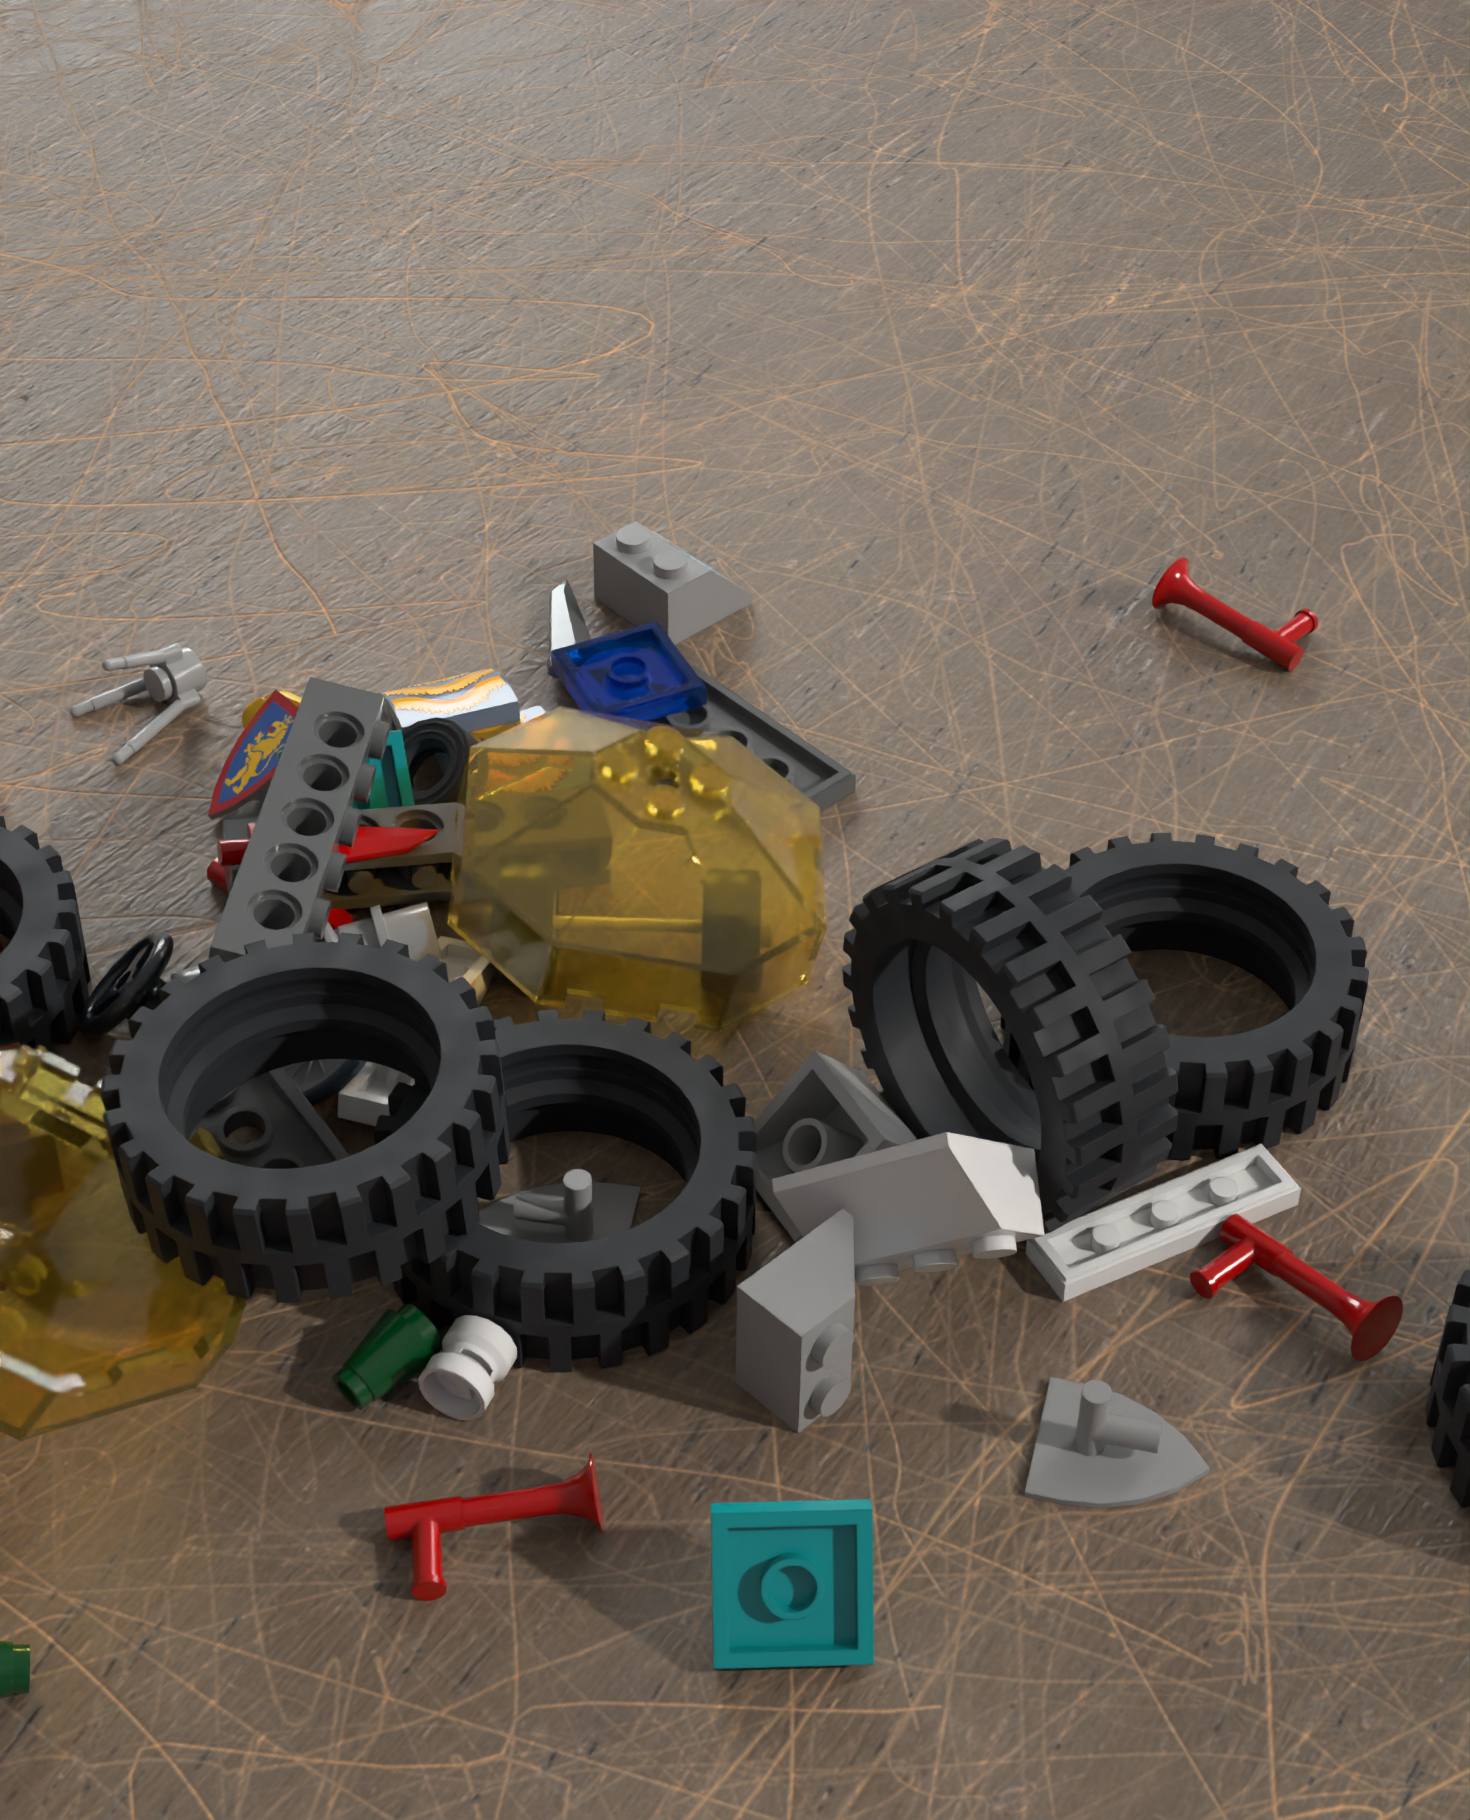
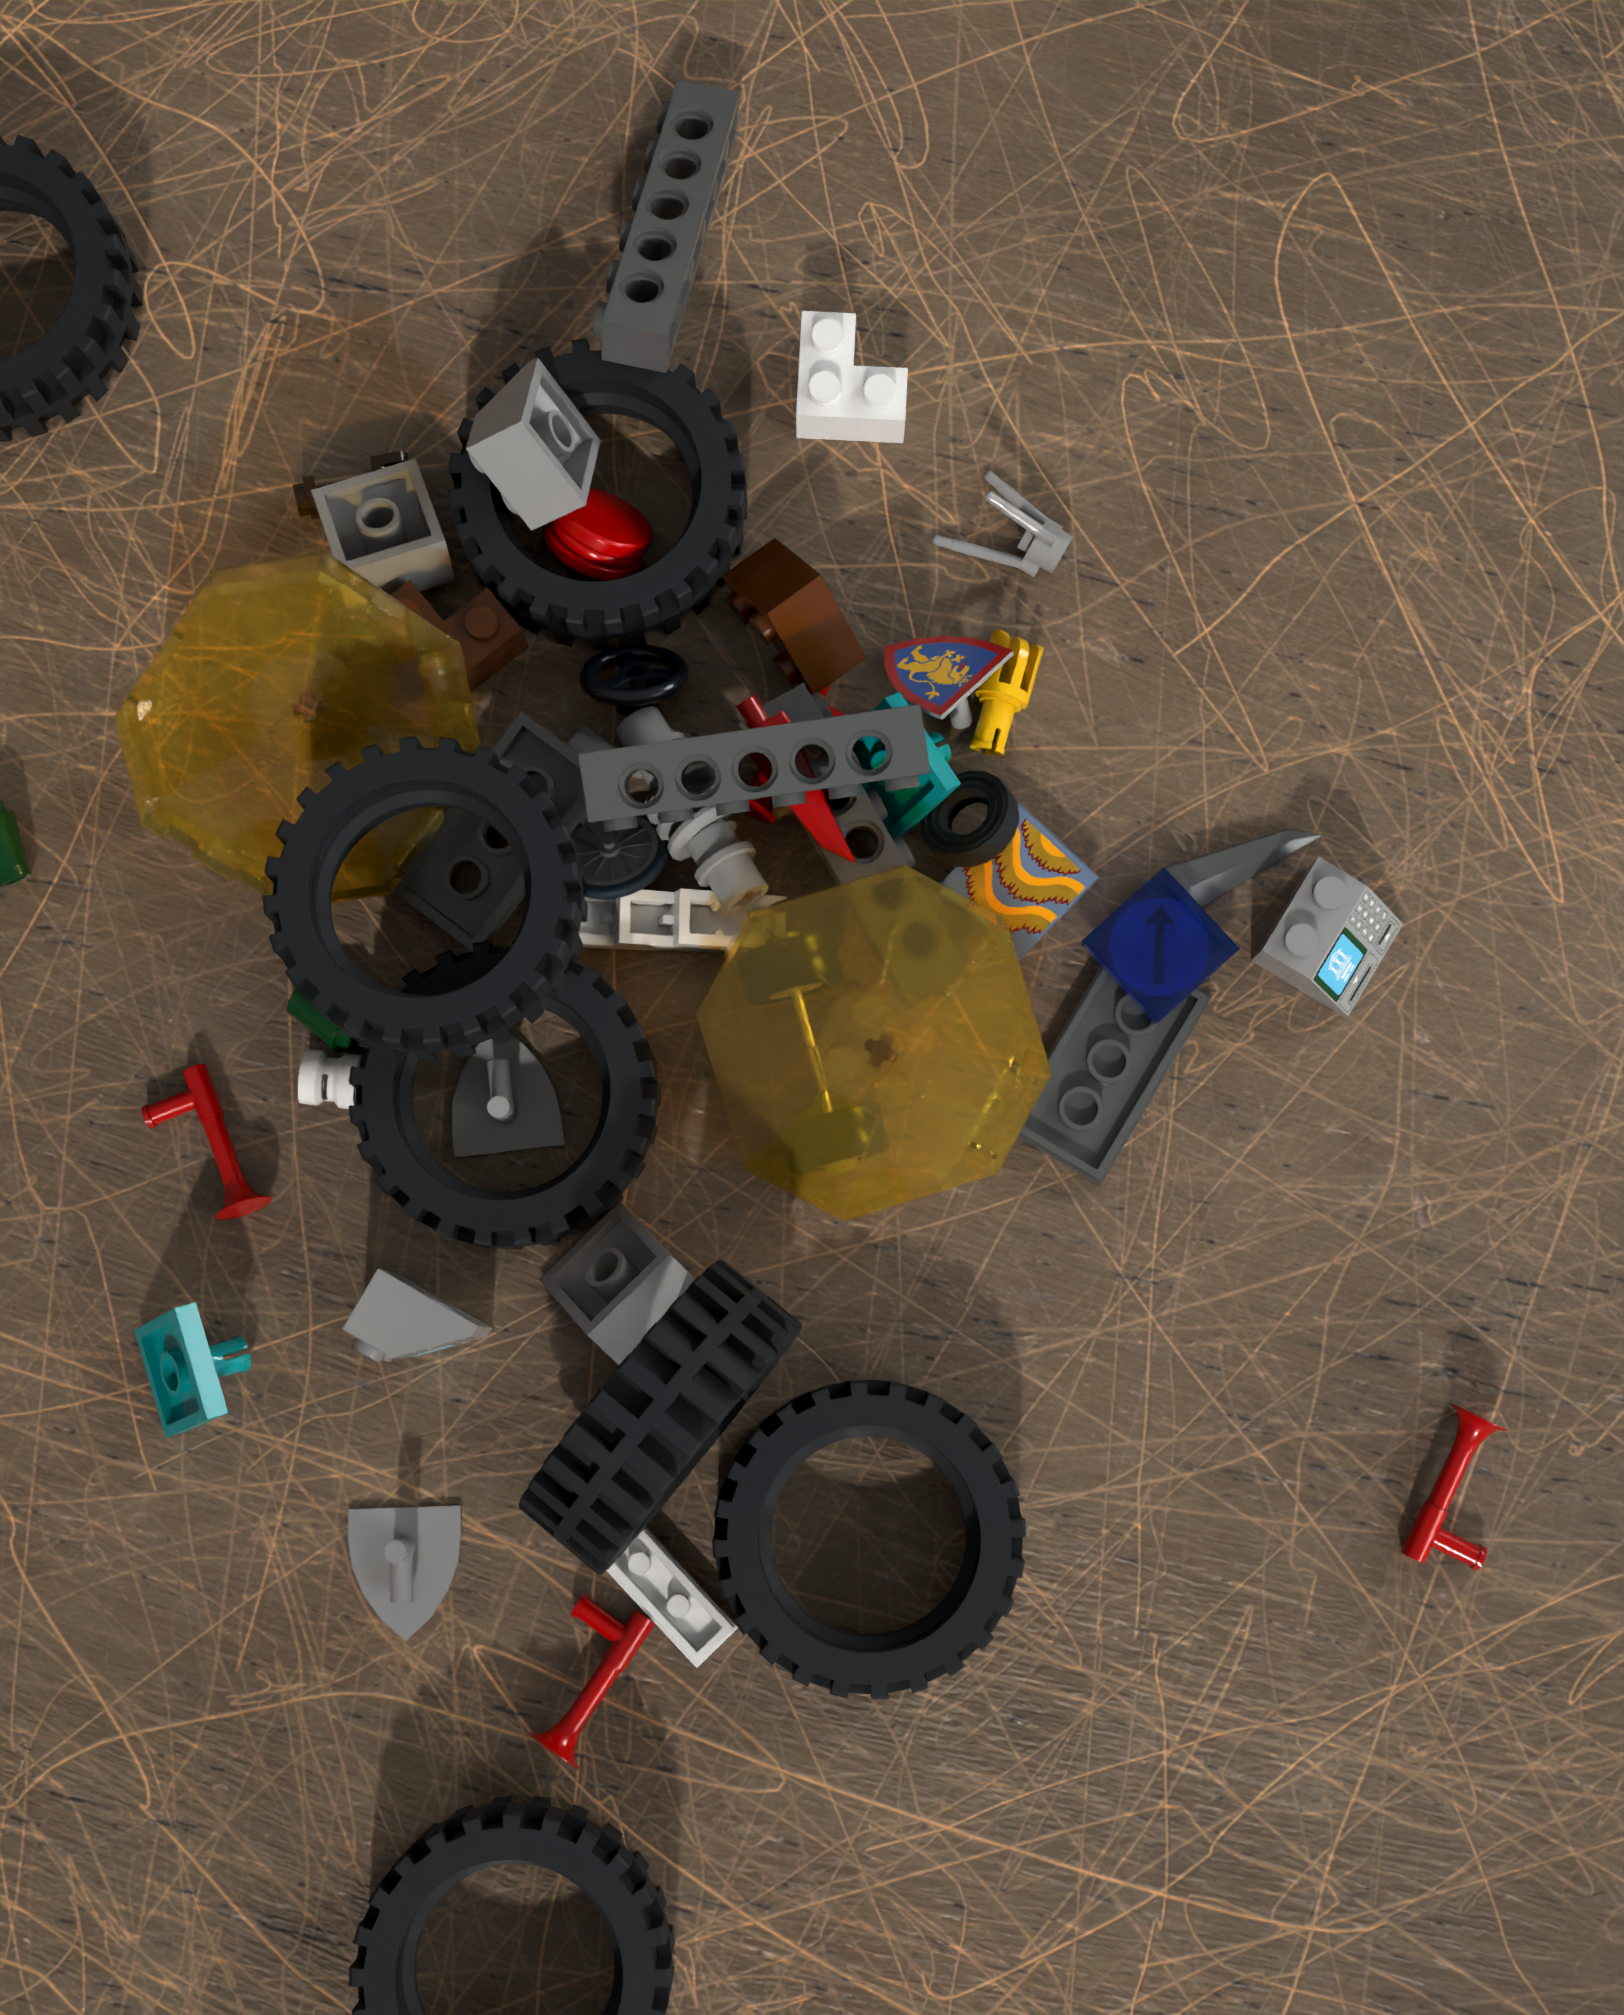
camera: 75 degrees right, 40 degrees up
(133, 829) = (796, 613): none -> reddish brown brick
(470, 699) = (1079, 797): slope -> none
(922, 1203) = (519, 1379): white slope -> none

